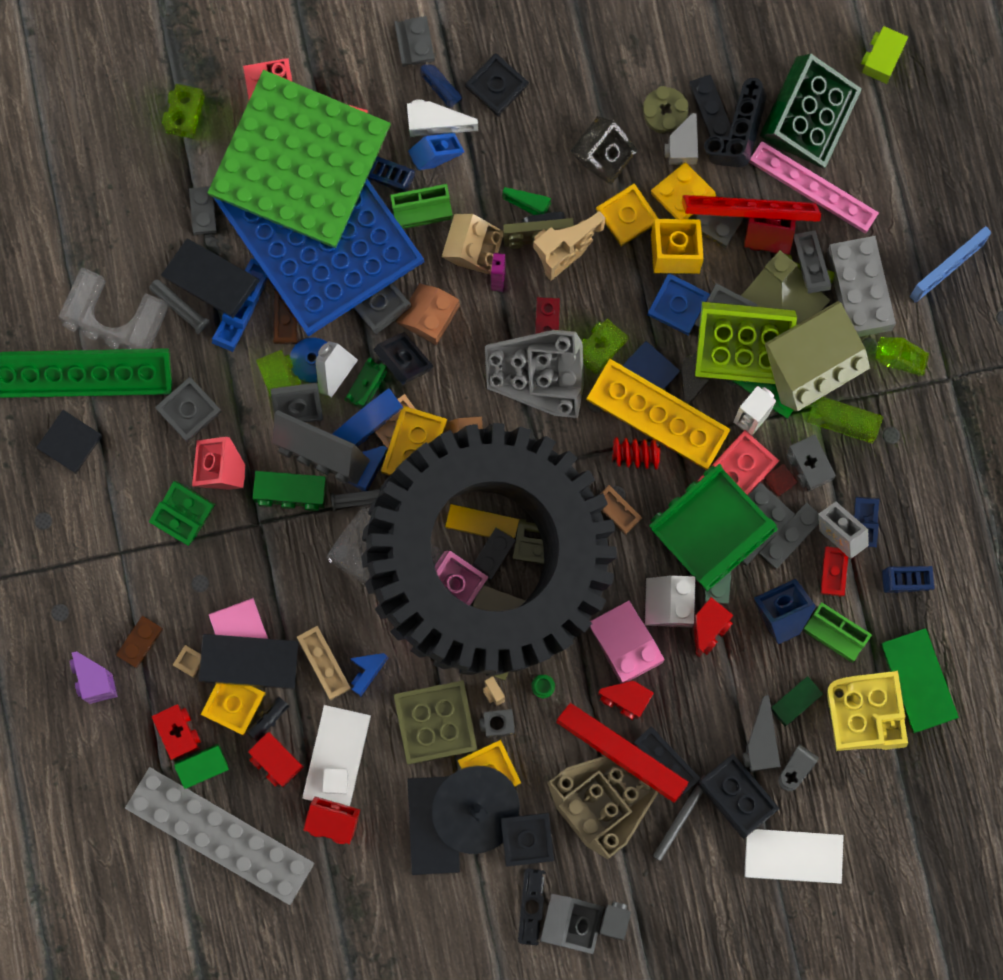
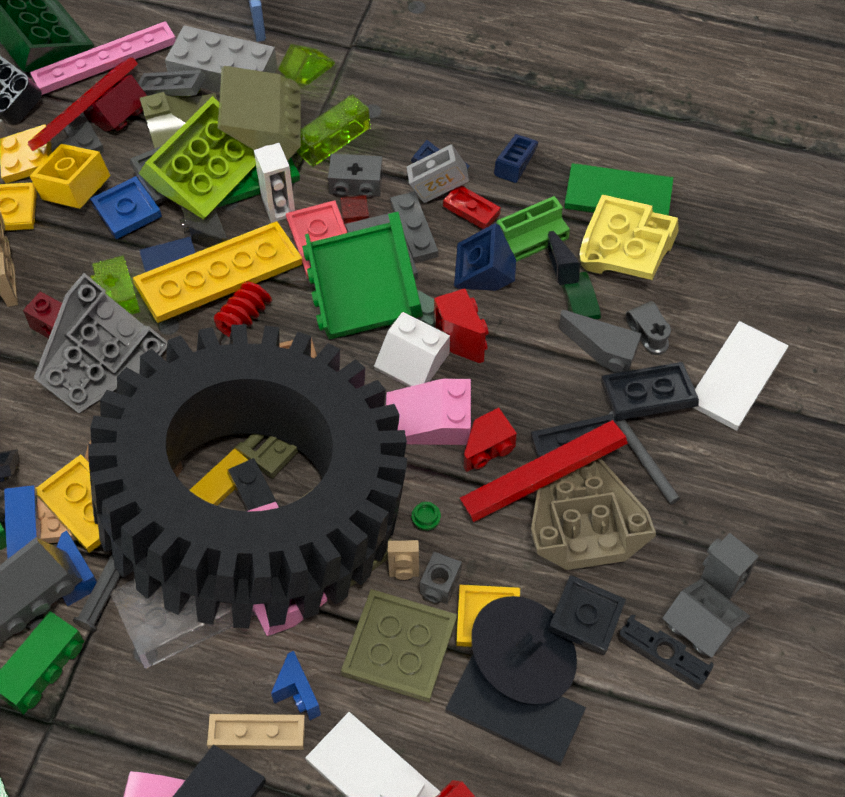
camera: 60 degrees left, 20 degrees down
(813, 675) = (563, 261): none -> black slope

